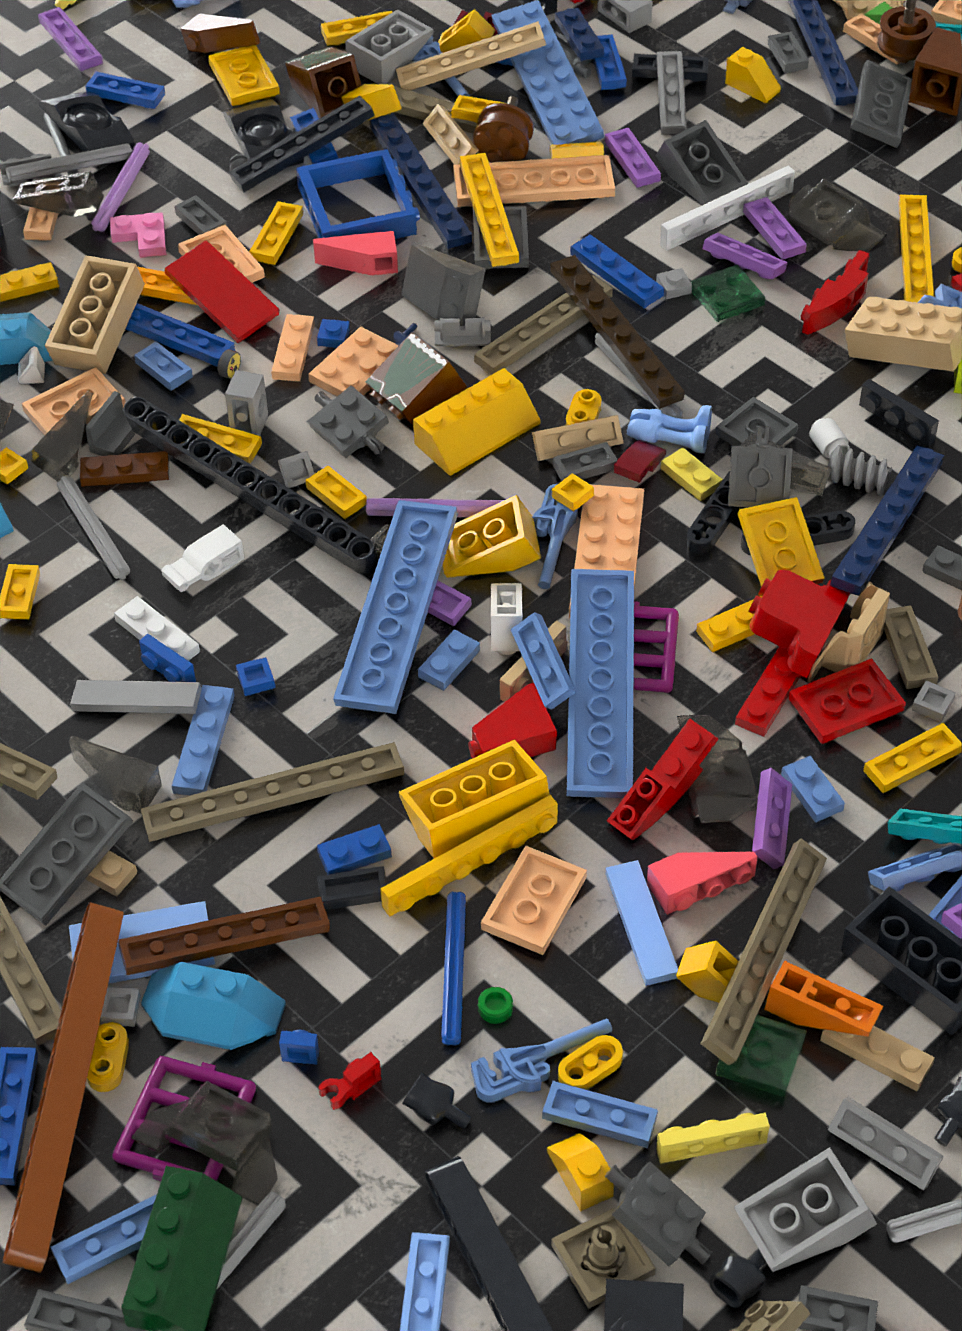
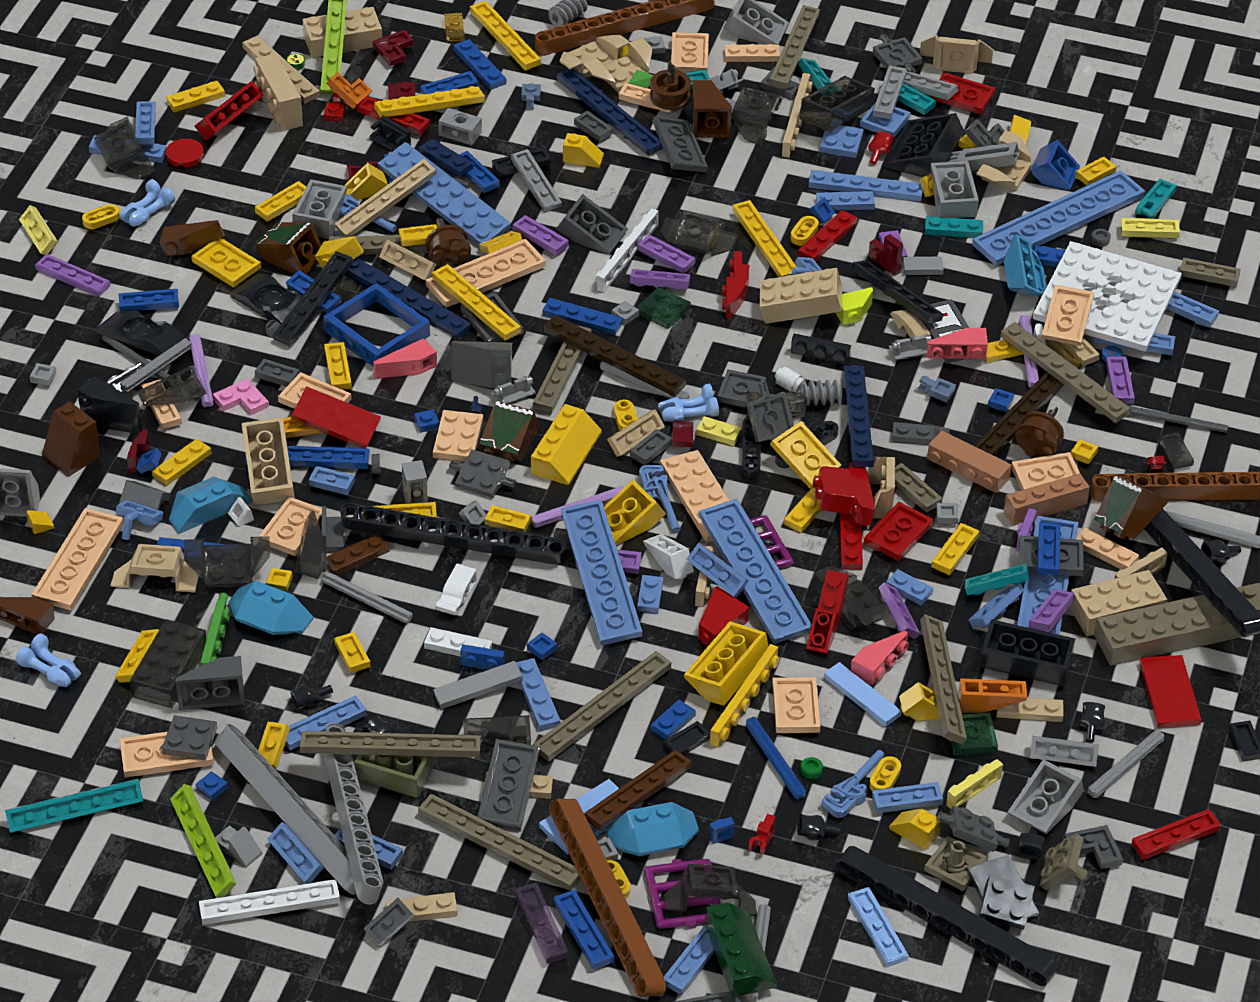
camera: 30 degrees left, 5 degrees down
(293, 347) = (406, 438): light nougat plate -> none
(573, 492) = (661, 466): yellow plate -> none

